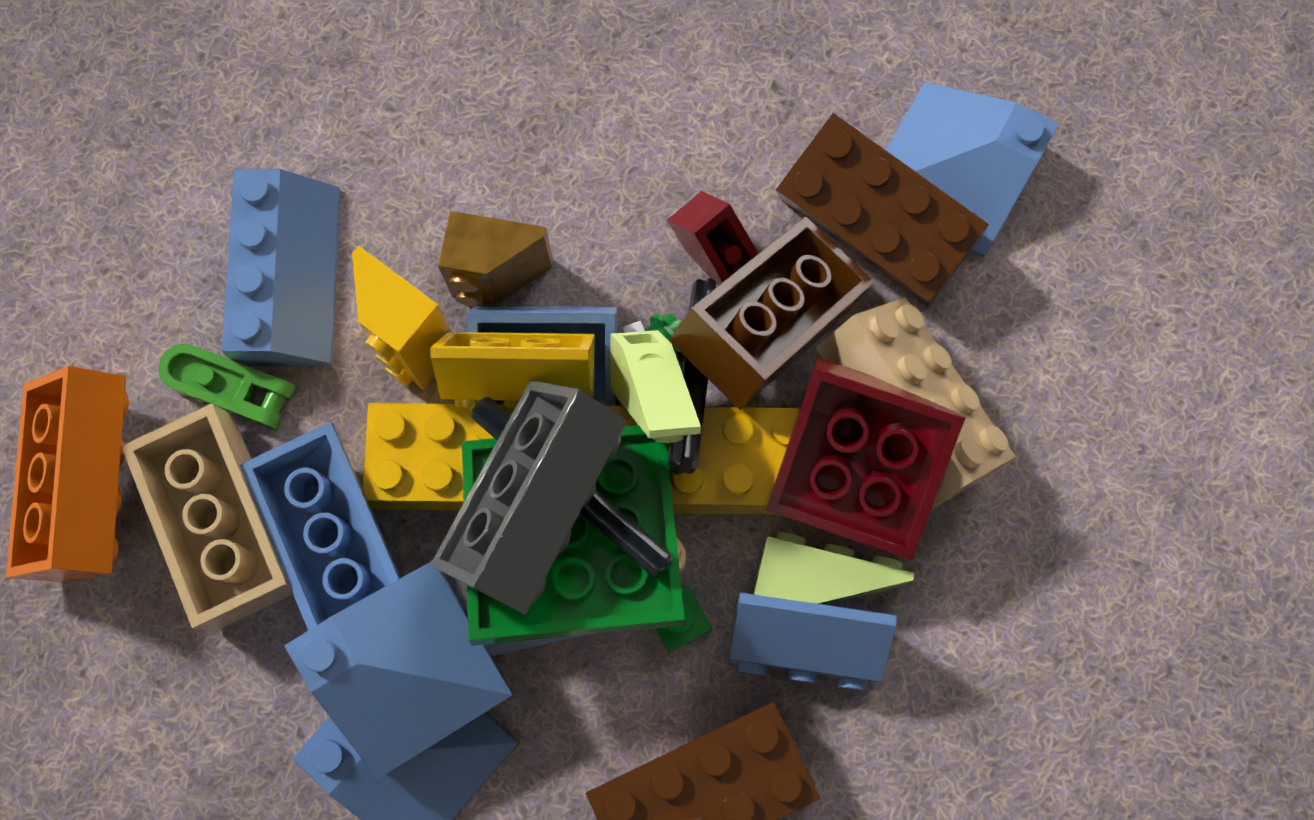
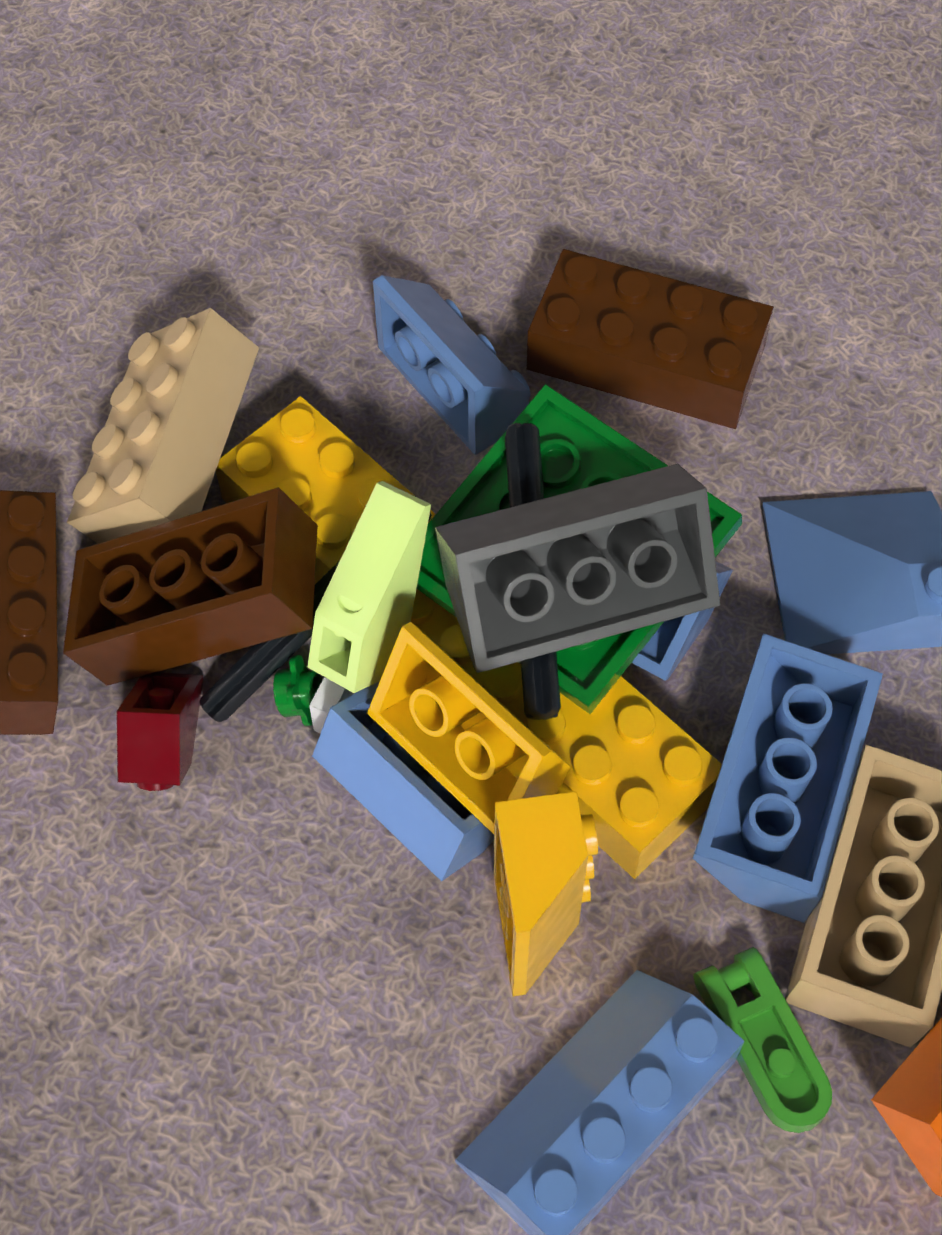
camera: 135 degrees left, 15 degrees down
(399, 670) = (819, 590): medium blue slope -> none
(491, 257) = (385, 889): pearl gold slope -> none
(822, 576) = (399, 405): yellowish green slope -> none
(864, 459) = (260, 406): dark red slope -> none

